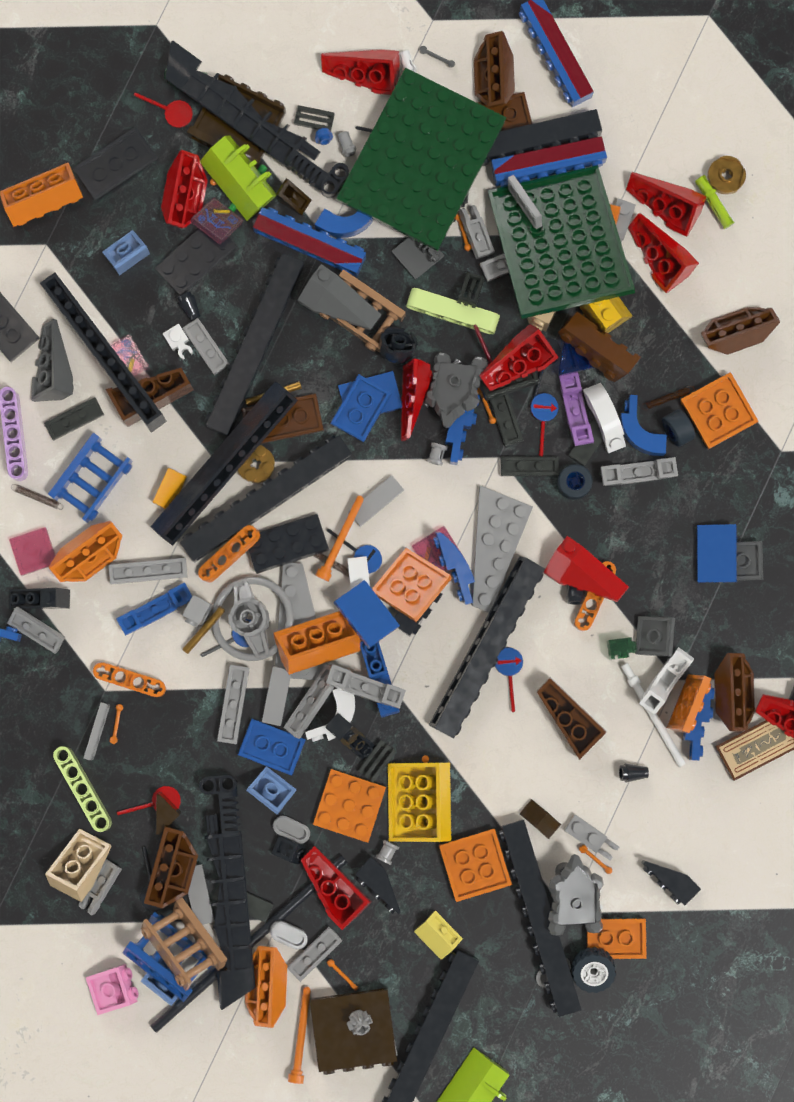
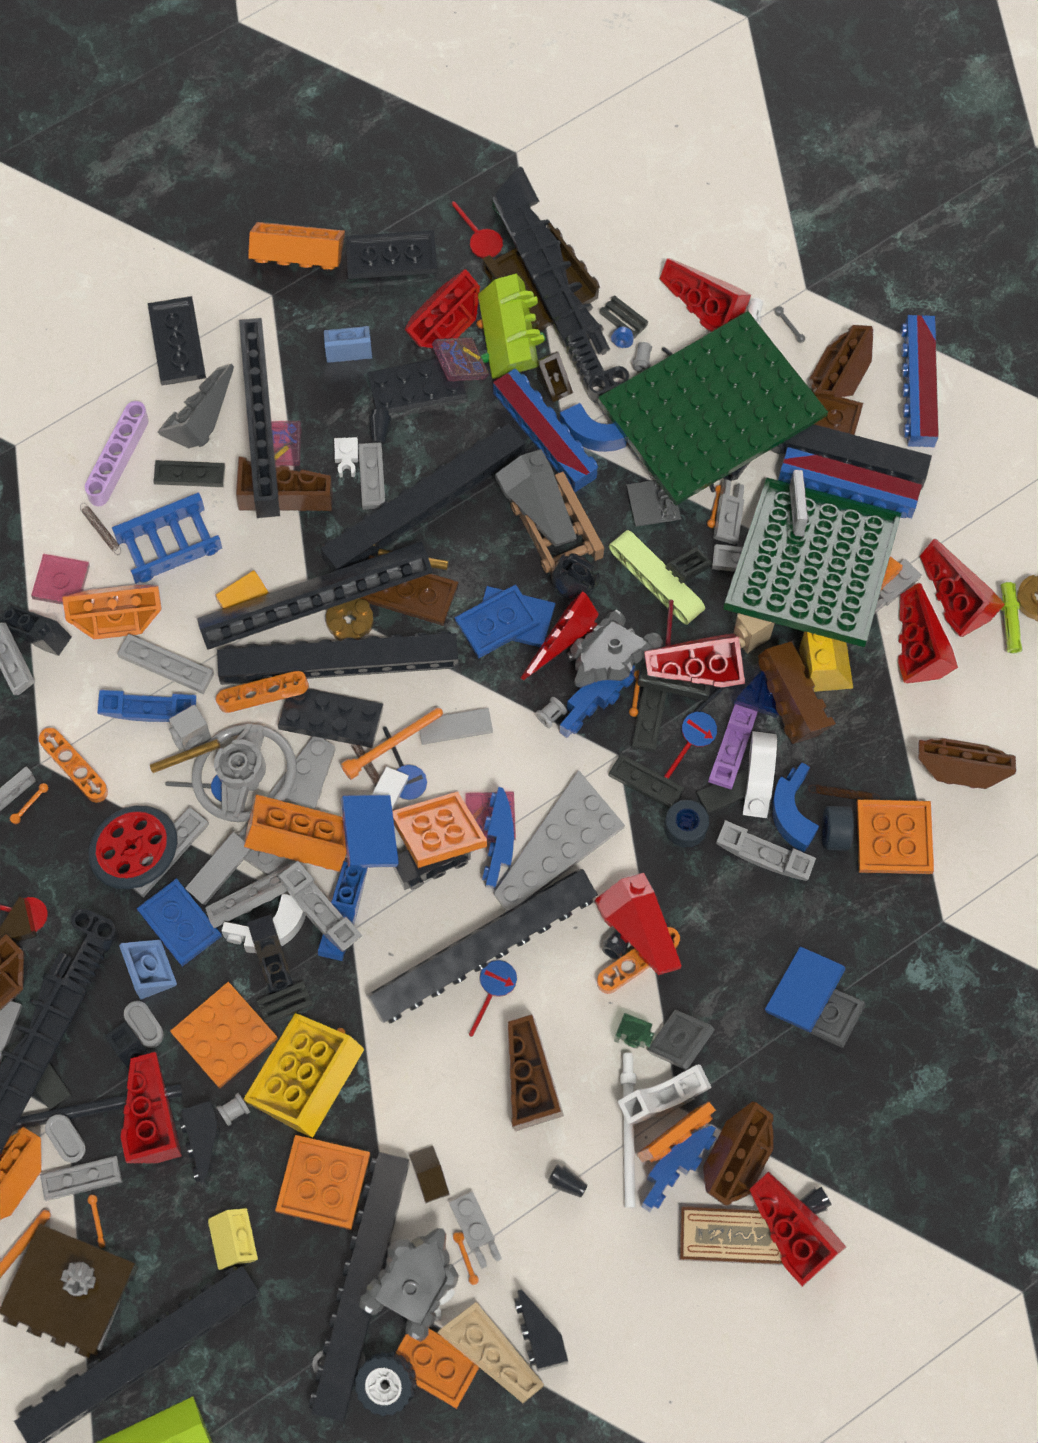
camera: 30 degrees right, 15 degrees down
(192, 696) = (137, 876): none -> wedge
(643, 909) = (489, 1349): none -> tan wing

